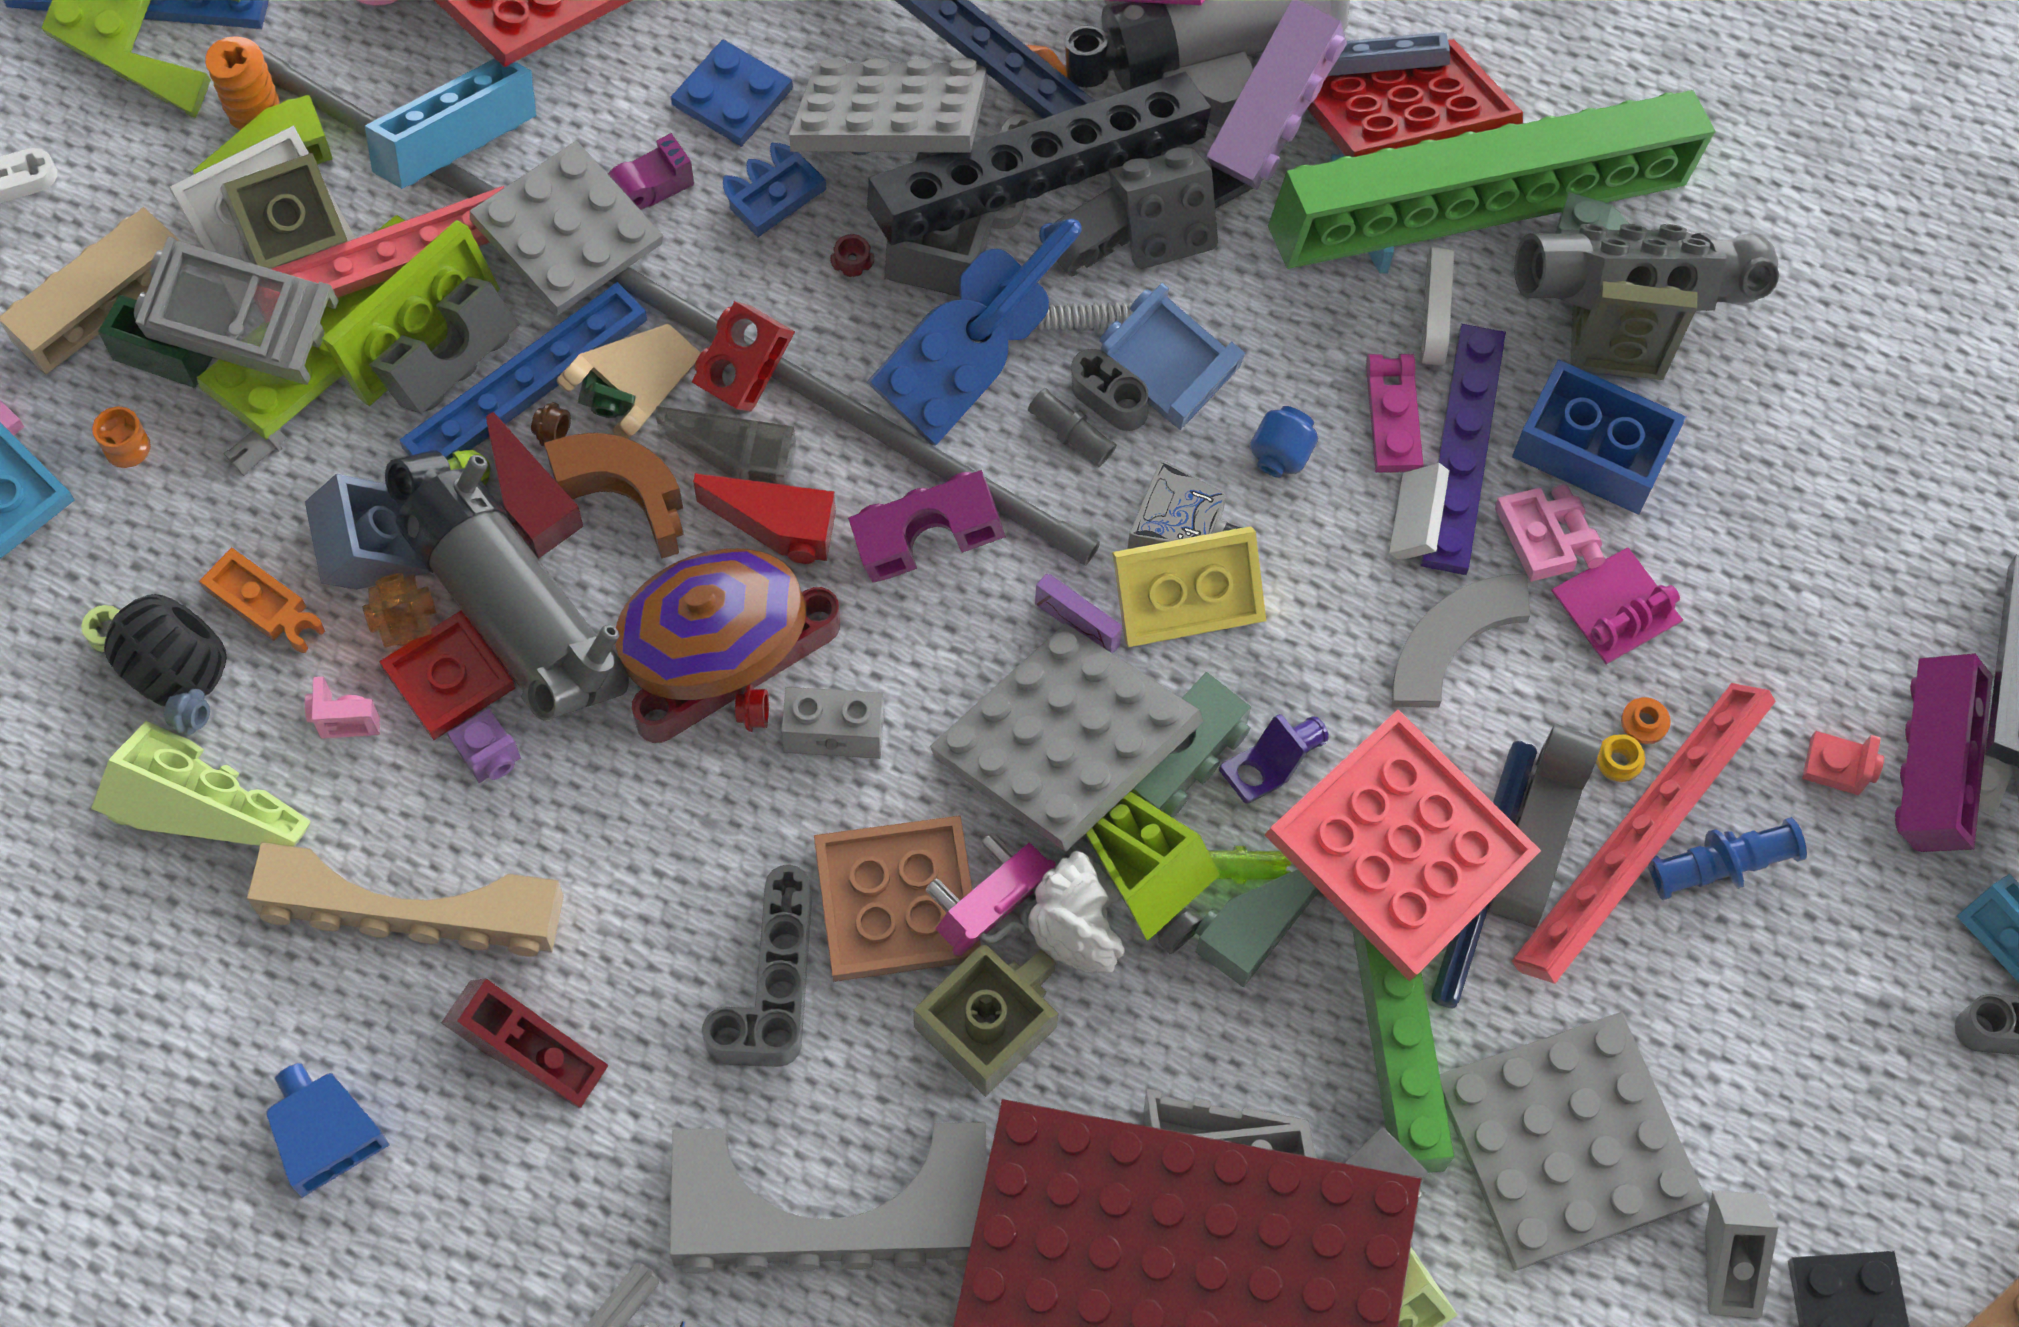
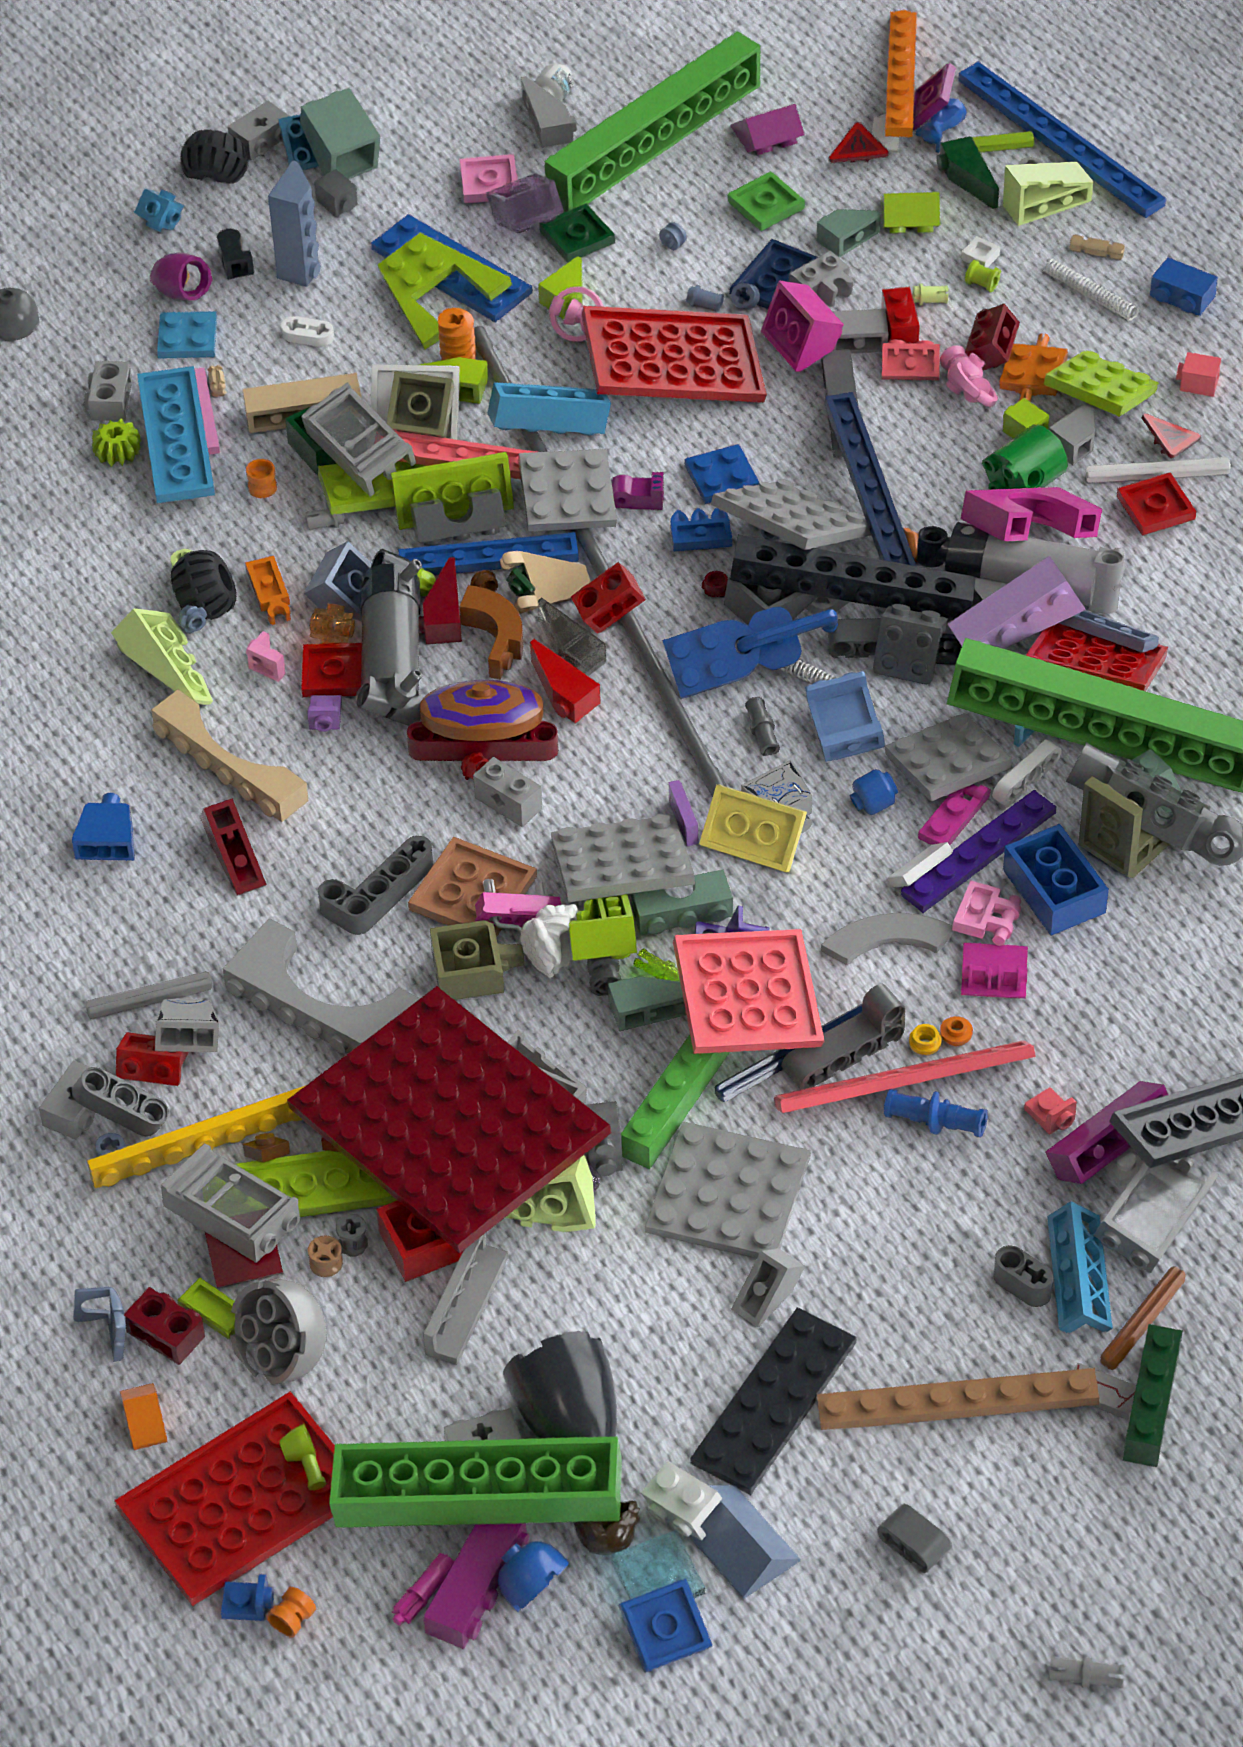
camera: 40 degrees right, 15 degrees down
(889, 530) = (614, 722): magenta arch -> none
(1117, 383) = (798, 717): dark grey beam -> none
(1331, 339) = (948, 756): none -> light grey plate

